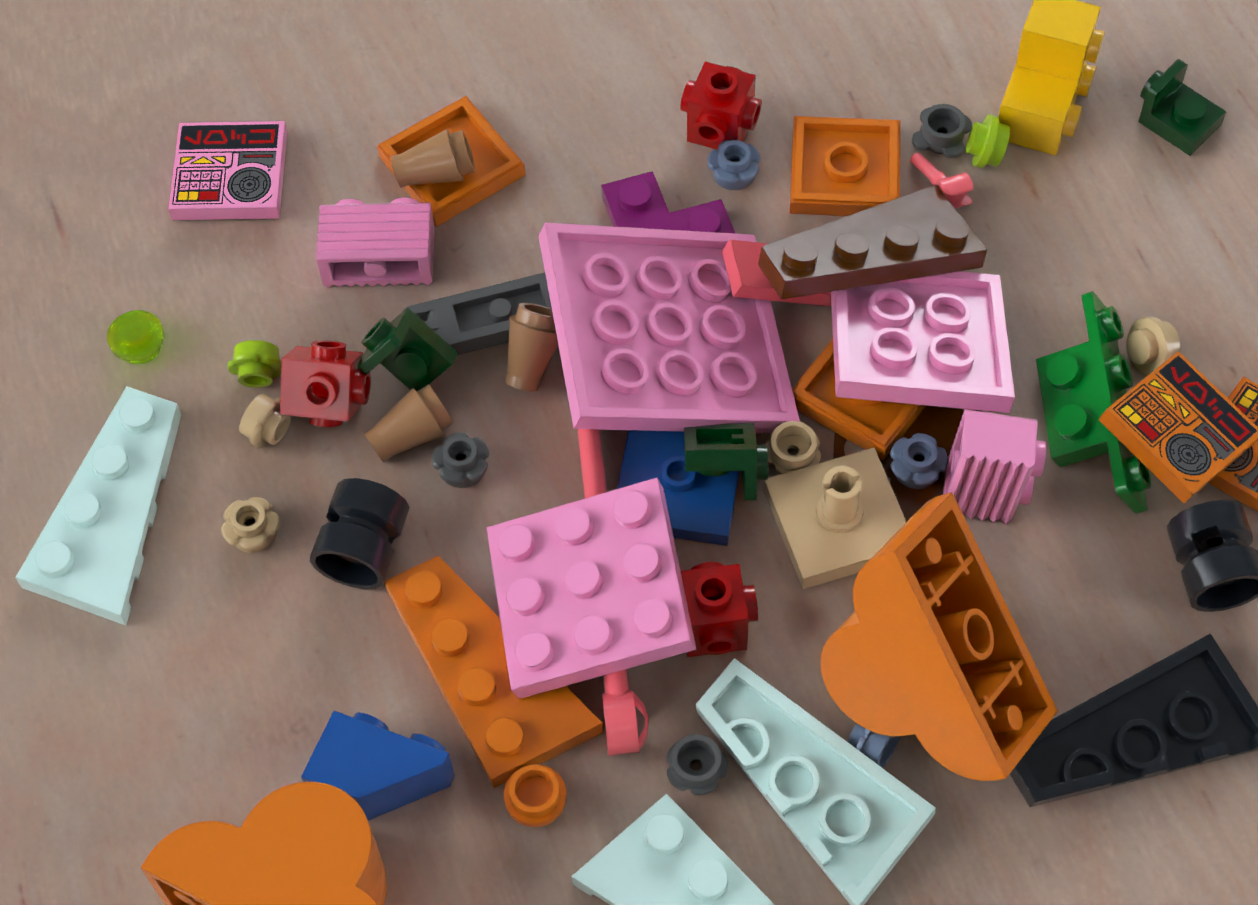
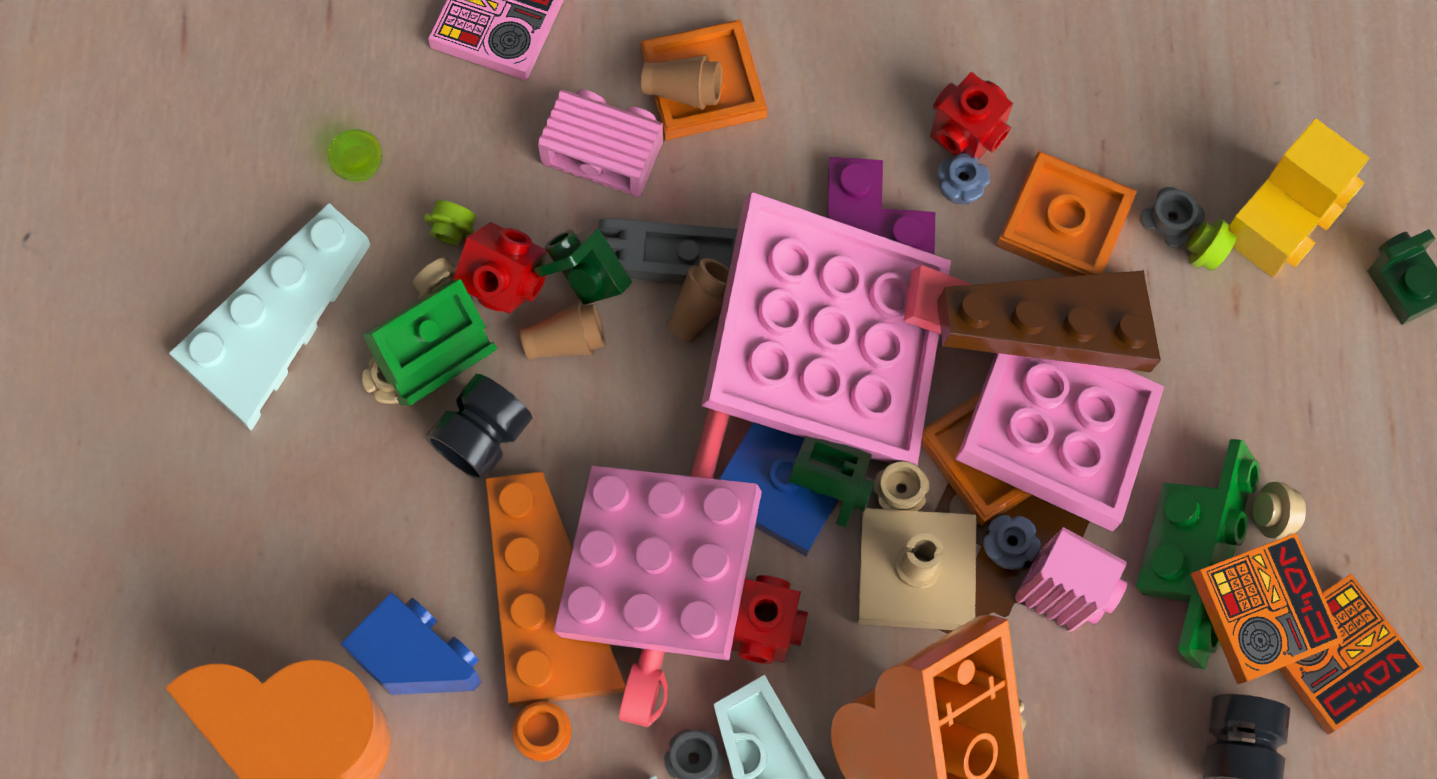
camera: 15 degrees right, 10 degrees up
(279, 471) = (429, 342): none -> green plate
(461, 473) = (598, 398): dark grey plate -> none
(953, 187) = (1158, 279): coral hand -> none

